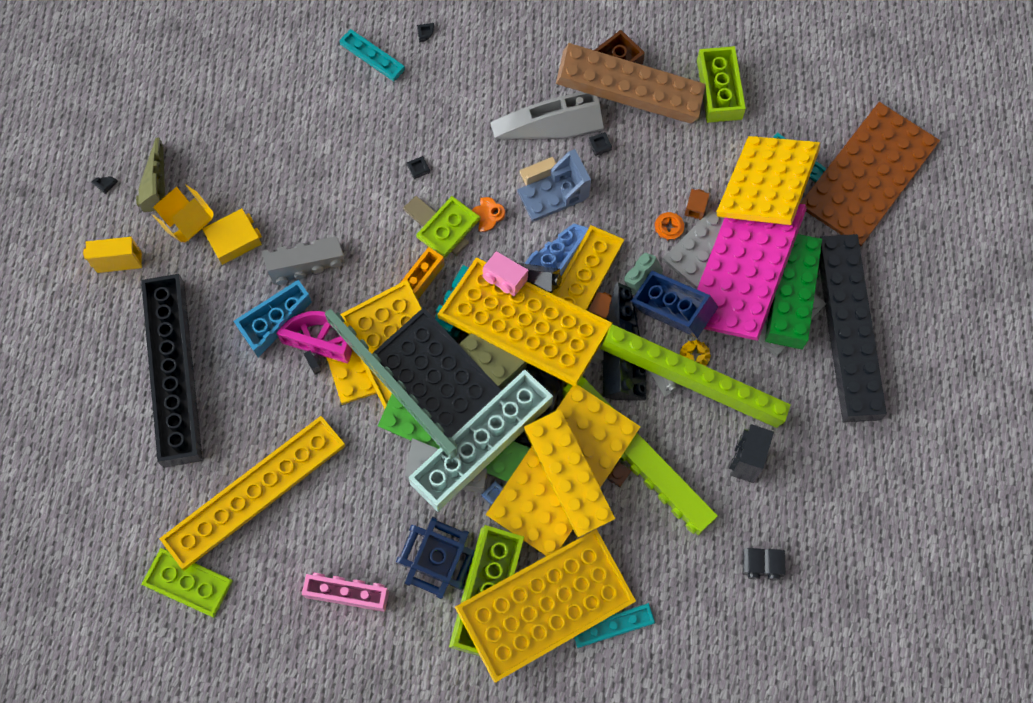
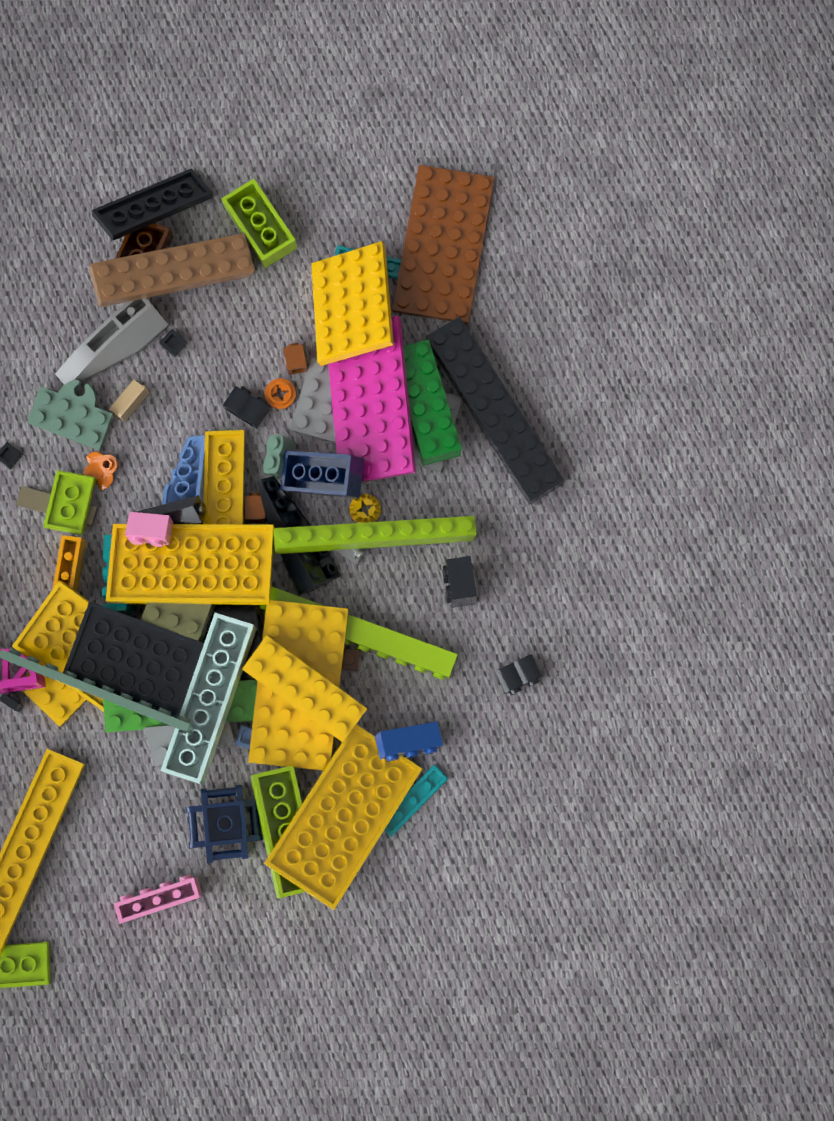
camera: 25 degrees left, 10 degrees up
(487, 160) = (71, 414): none -> sand green plate
(564, 188) = (156, 412): sand blue bracket -> none
(635, 222) = (246, 407): none -> black brick
(636, 569) = (408, 741): none -> blue brick
(640, 27) = (152, 204): none -> black plate

